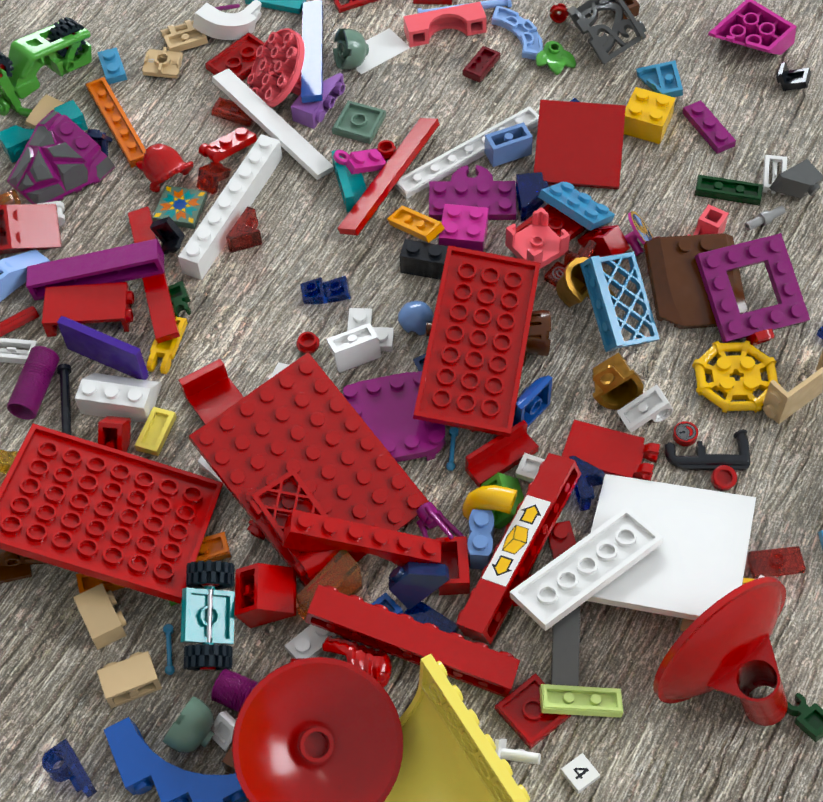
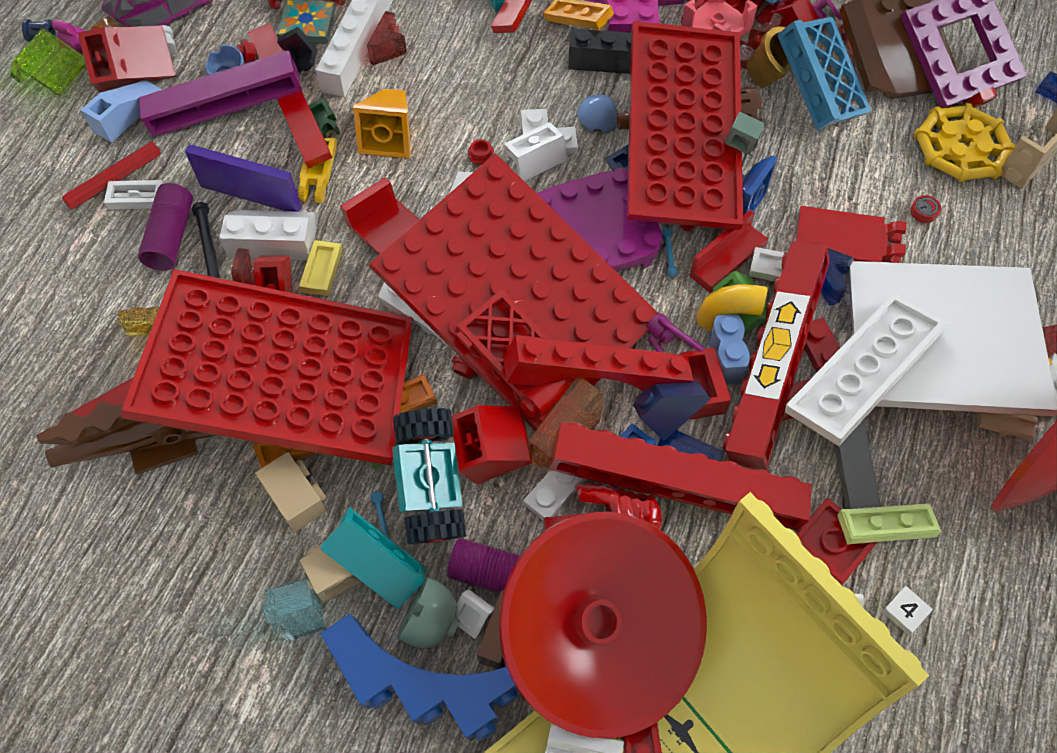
camera: 10 degrees left, 5 degrees up
(71, 768) = (286, 684): clear blue plate -> none
(86, 709) = (293, 610): none -> clear light blue brick
(87, 304) = (218, 131): red panel -> none
(89, 427) = (242, 267): none -> clear red plate
(103, 239) = (224, 59): none -> medium blue hair
(123, 232) = (247, 50): none -> red plate
(155, 676) = (374, 558): none -> teal panel
(228, 309) = (383, 124): none -> light orange slope
(322, 292) = (495, 95): clear blue slope -> none
(523, 354) = (744, 133): none -> sand green slope
(616, 383) = (842, 160): pearl gold container -> none
(647, 406) = (884, 181): white plate -> none
(712, 461) = (964, 235): black piece -> none
(723, 478) = (981, 251): red tile -> none

